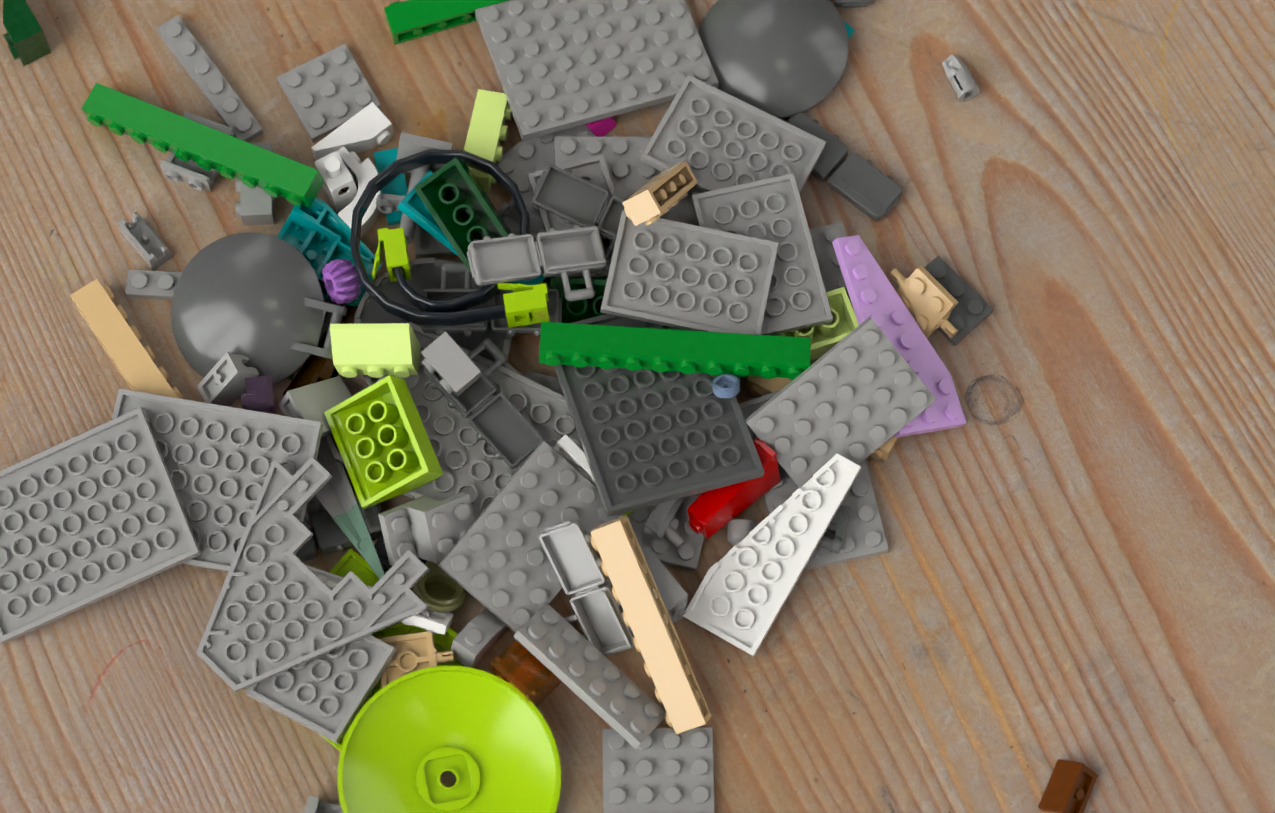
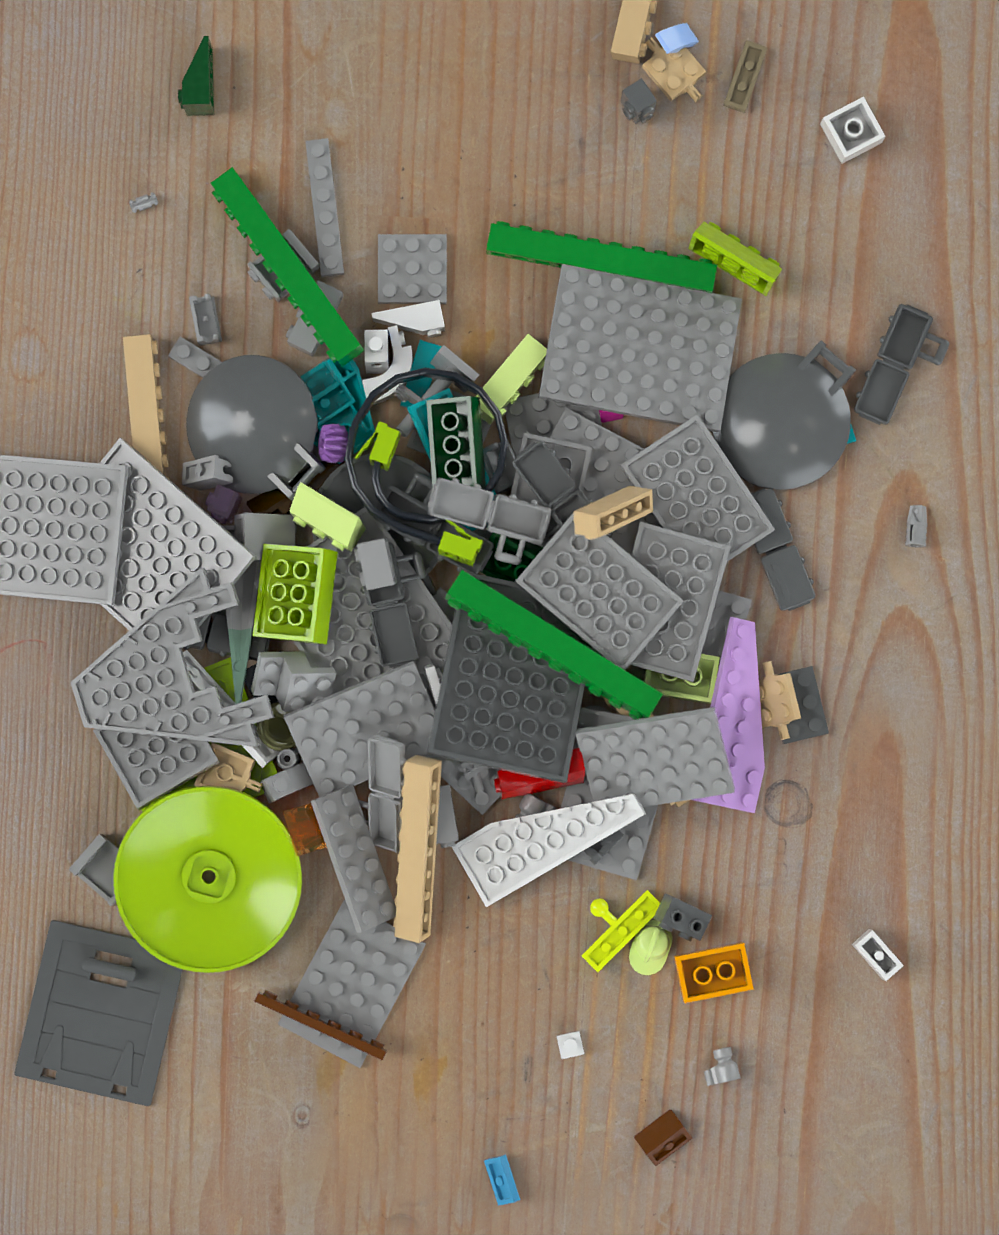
camera: 30 degrees right, 15 degrees up
(22, 164) = (143, 202): none -> light grey piece
(464, 613) = (288, 758): none -> light grey piece
(726, 386) = (576, 696): sand blue tile -> none
(901, 607) = (620, 929): none -> neon yellow plate
(918, 750) = (570, 1044): none -> white plate
(942, 610) = (650, 948): none -> yellowish green piece
(956, 558) = (682, 917): none -> dark grey brick
(1019, 595) = (713, 972): none -> light orange brick
(1090, 687) = (725, 1070): none -> light grey piece
(1170, 490) = (877, 955): none -> white brick

